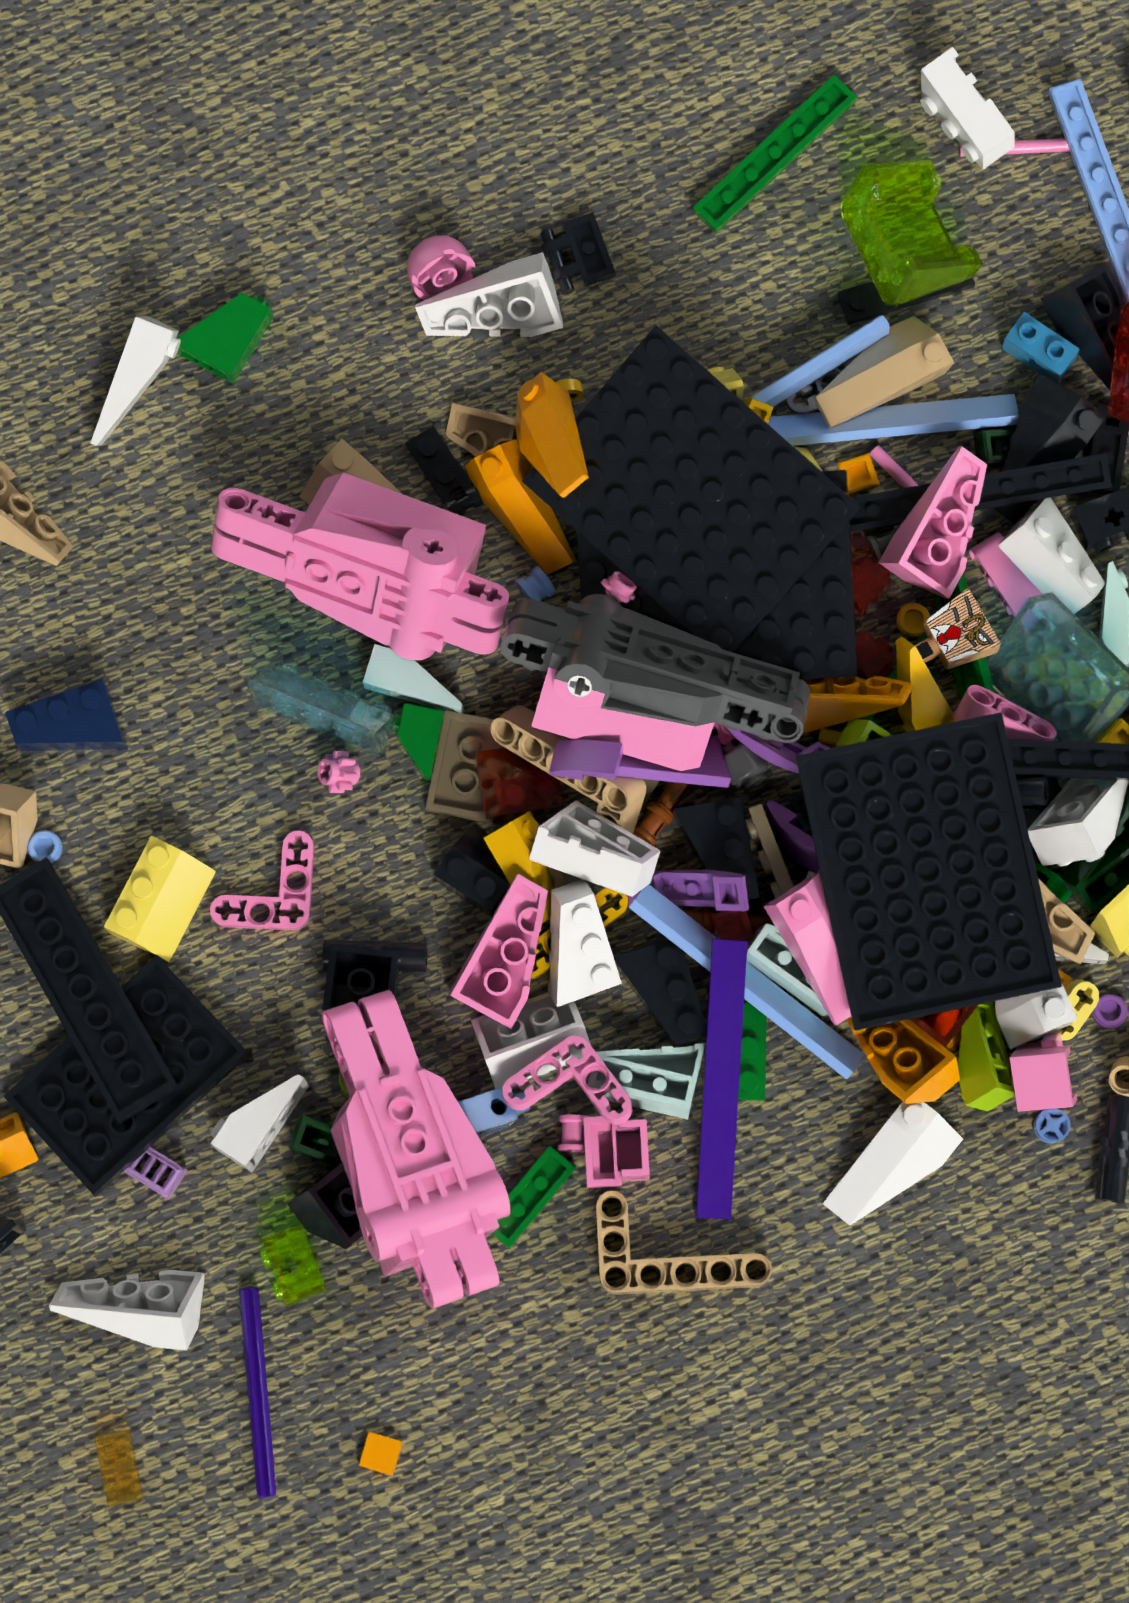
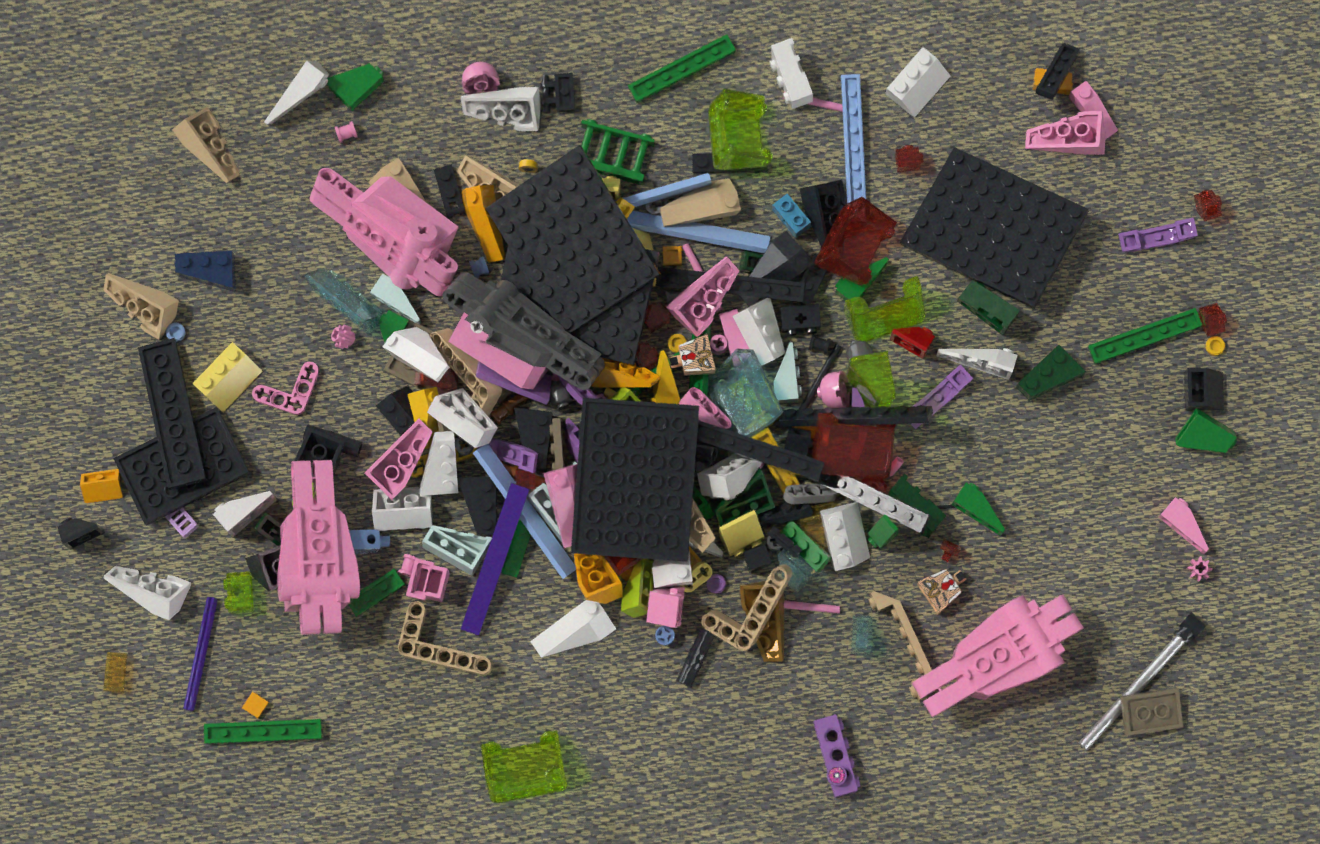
camera: 15 degrees right, 0 degrees up
(235, 421) = (346, 132): none -> bright pink bush
(408, 1496) = (262, 731): none -> green plate
(480, 760) = (417, 351): none -> white wedge
(550, 434) = (507, 186): light orange wedge -> none
(579, 1071) = (419, 531): bright pink beam -> none
(586, 757) = (472, 366): medium lavender slope -> none
(613, 907) = (466, 451): none -> dark grey bush
(619, 587) = (520, 280): bright pink plate -> none
(752, 355) = (634, 175): none -> green fence
(884, 1426) = (524, 769): none -> clear neon green windscreen
(994, 596) = (722, 349): none -> bright pink bush

